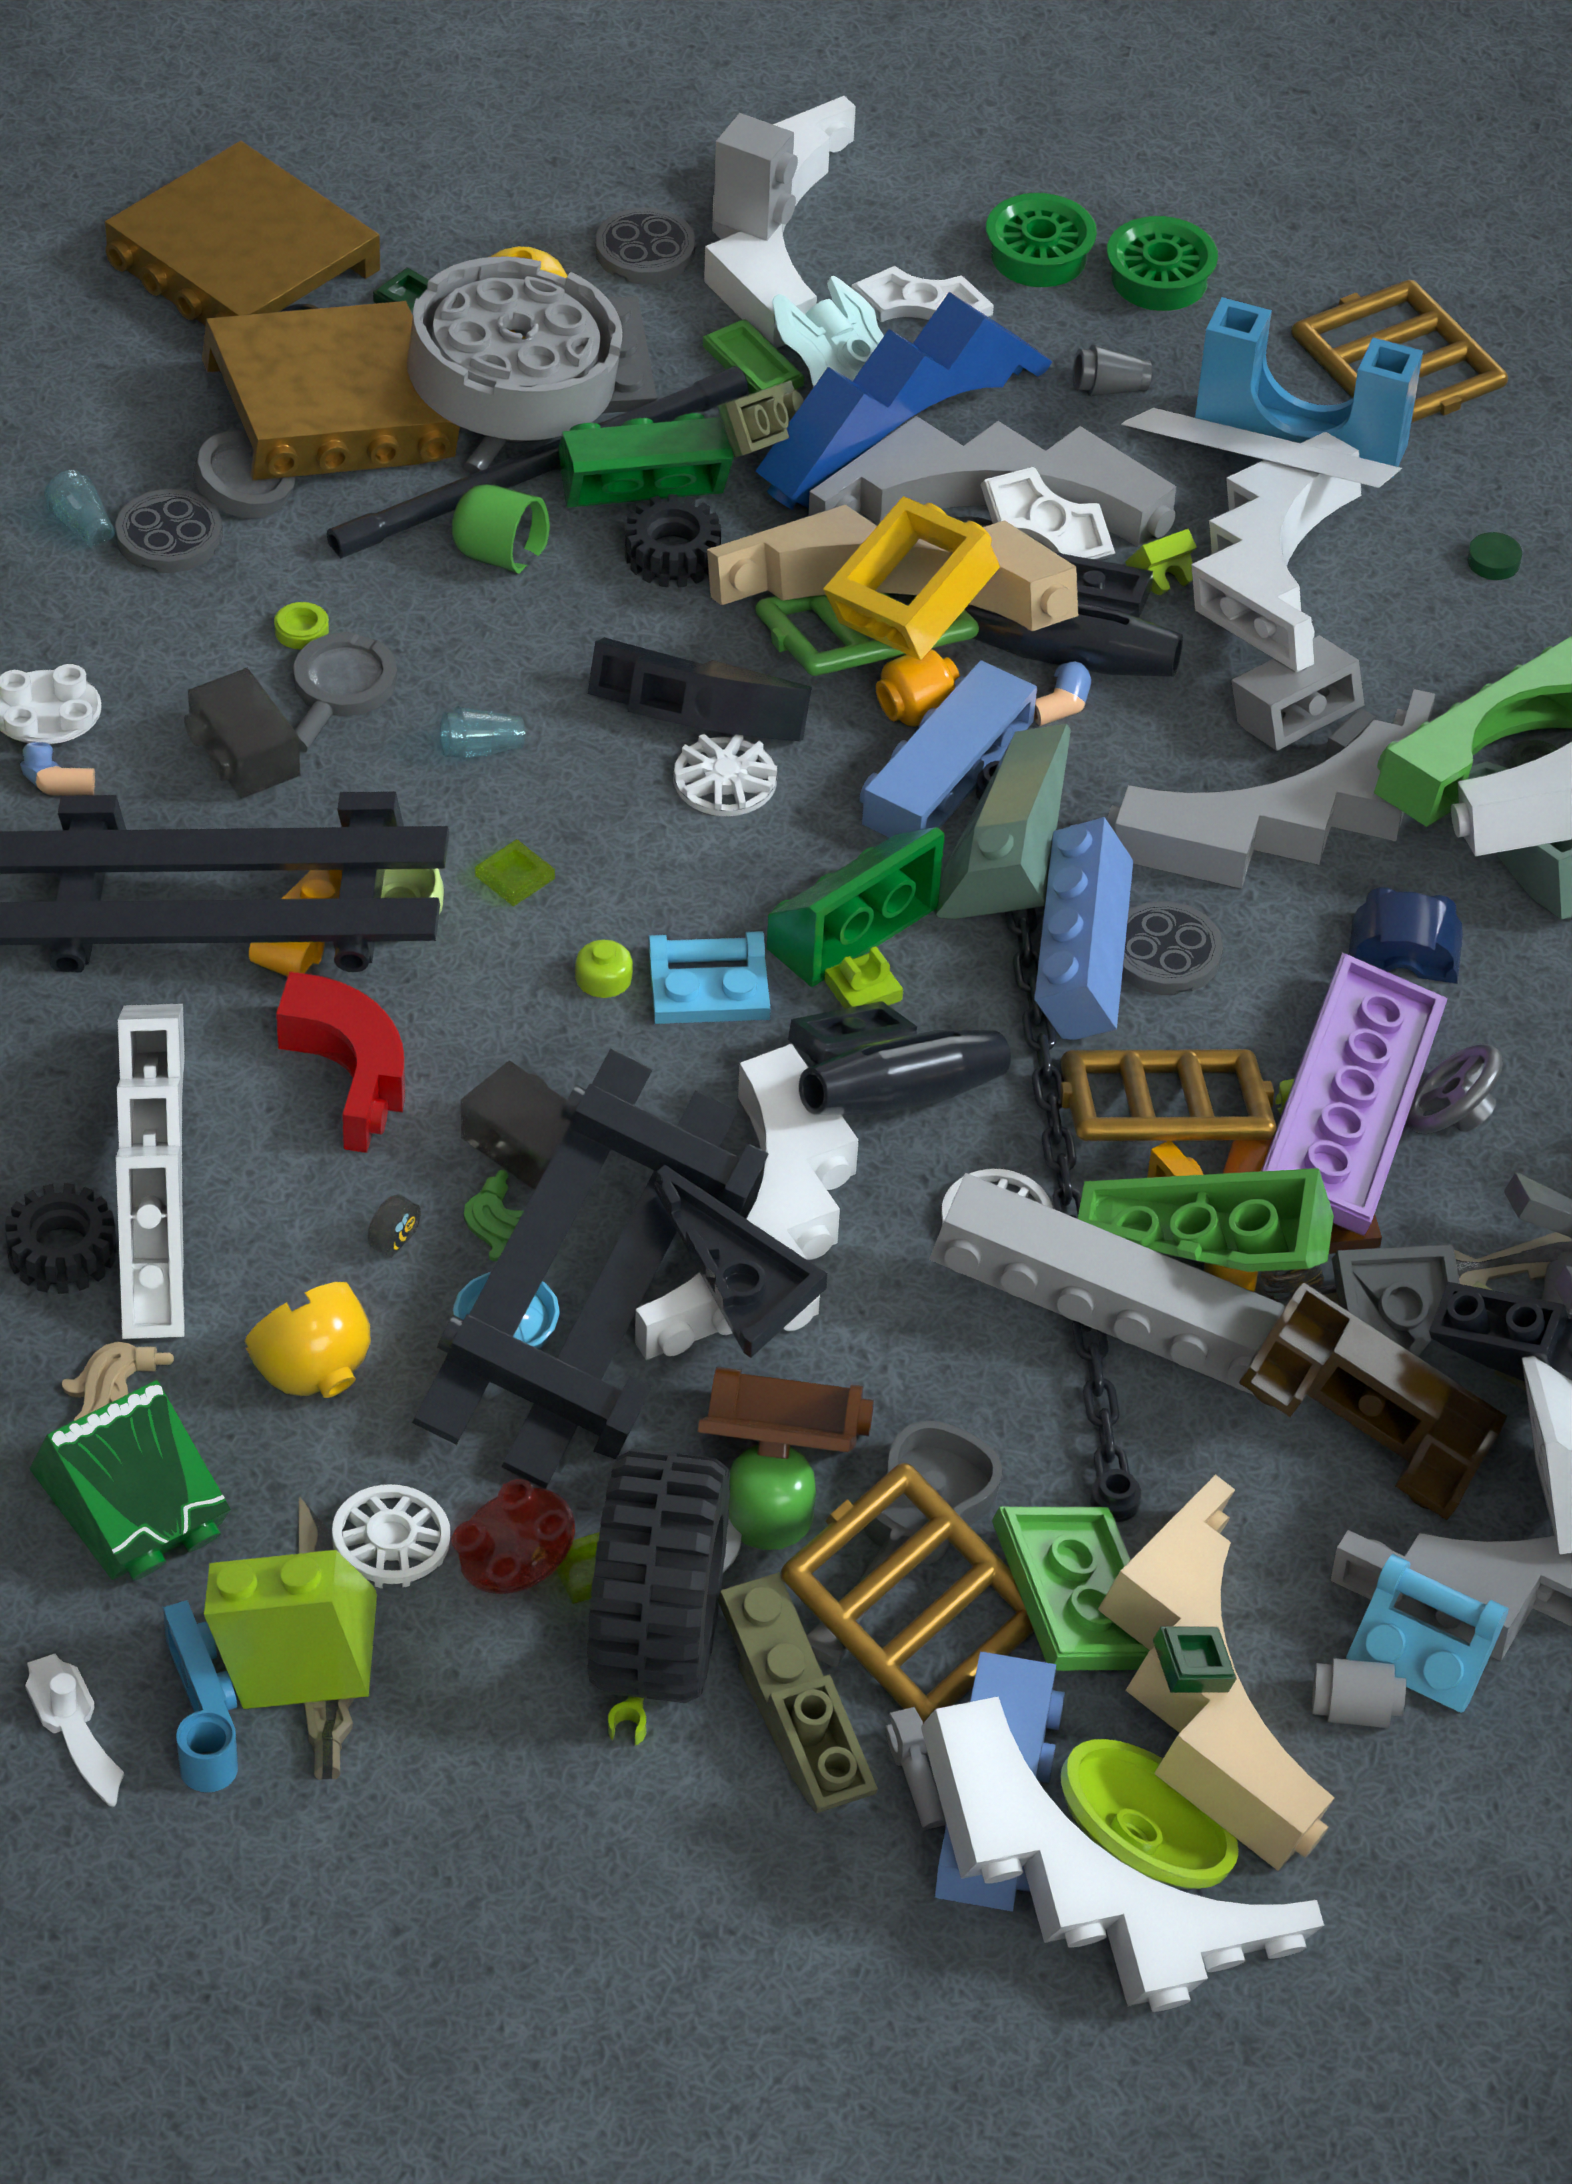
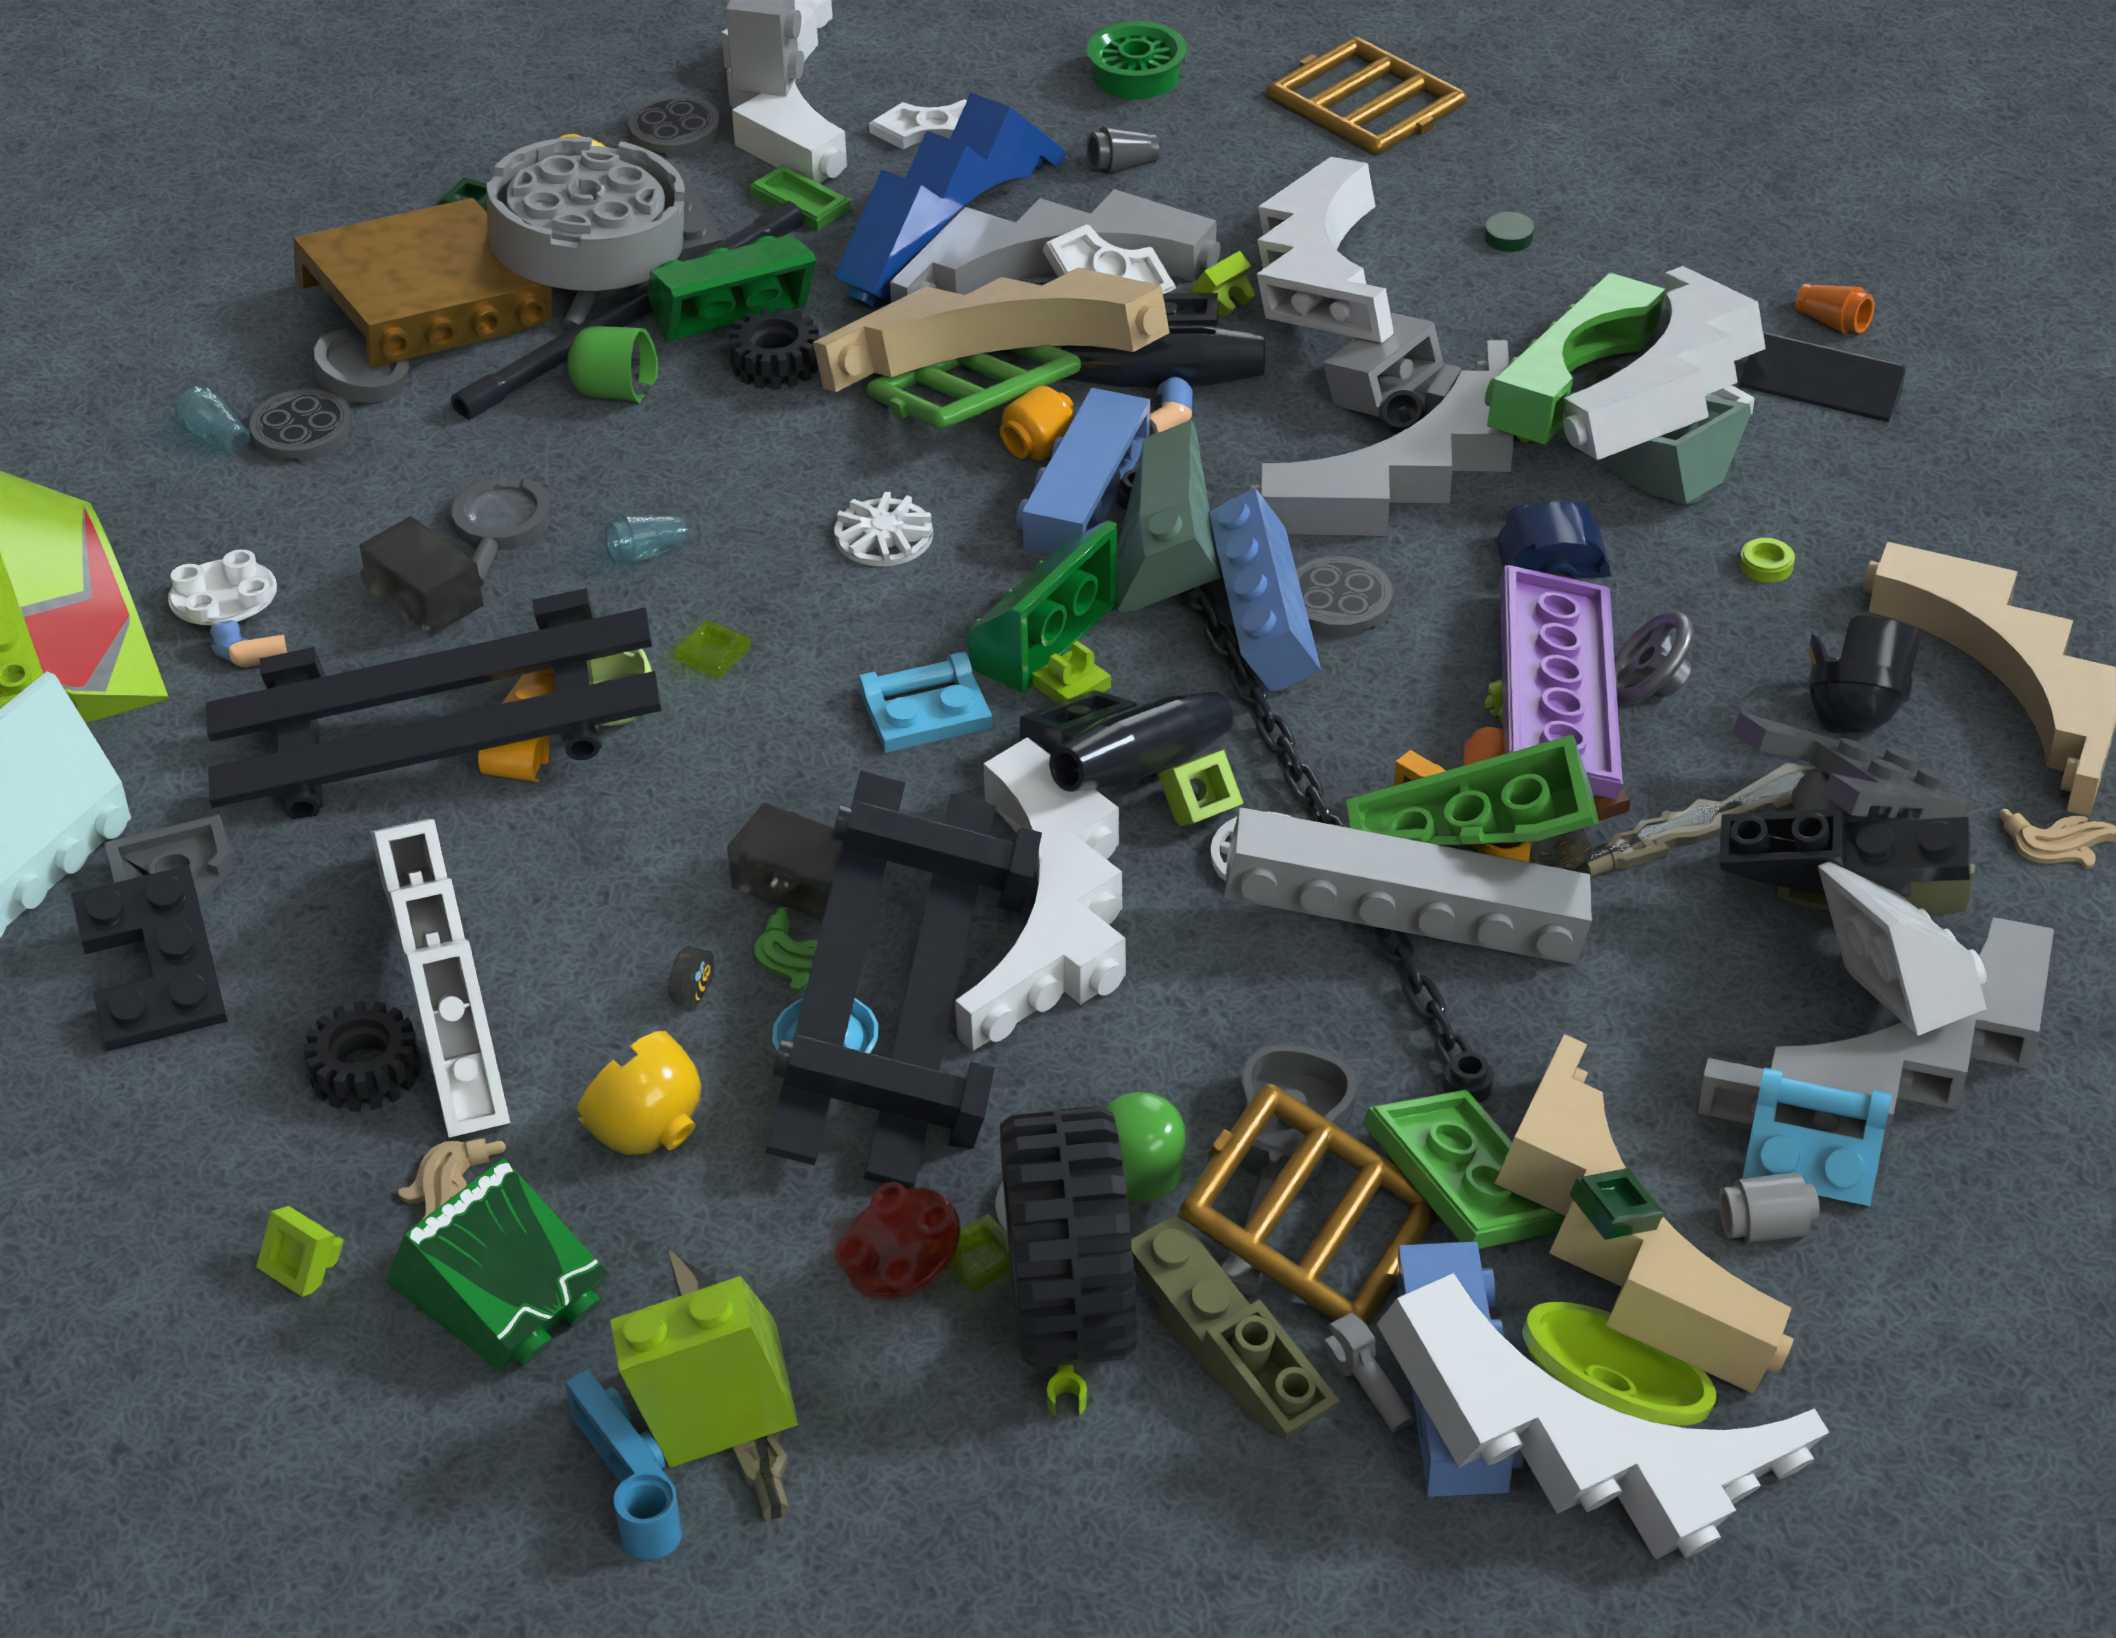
camera: 10 degrees left, 5 degrees down
(65, 1706) = (486, 1504): white piece -> none
(238, 238) = (300, 177): pearl gold panel -> none
(300, 623) = (446, 479): lime tile -> none
(354, 1031) = (603, 814): red arch -> none
(391, 1534) = (775, 1263): white wheel -> none
(603, 968) = (823, 713): lime piece -> none
(699, 694) = (839, 463): black slope -> none
(748, 1271) = (1054, 941): black wing -> none
(759, 417) = (826, 227): olive slope -> none
(786, 1413) = (1131, 1065): reddish brown door -> none
(831, 332) = (862, 155): light aqua piece -> none
(922, 623) = (1008, 362): yellow window -> none
(968, 1137) = (1215, 786): none -> lime plate
(1040, 239) = (1024, 59): green wheel -> none
(1143, 1123) = (1377, 737): pearl gold bar -> none
(1243, 394) = (1251, 149): dark azure arch -> none
(1264, 447) = (1281, 178): white sticker -> none
(1290, 753) = (1396, 400): none -> black hinge
(1378, 1389) = (1690, 927): dark brown bracket -> none
(1395, 1289) = (1665, 851): dark grey plate -> none

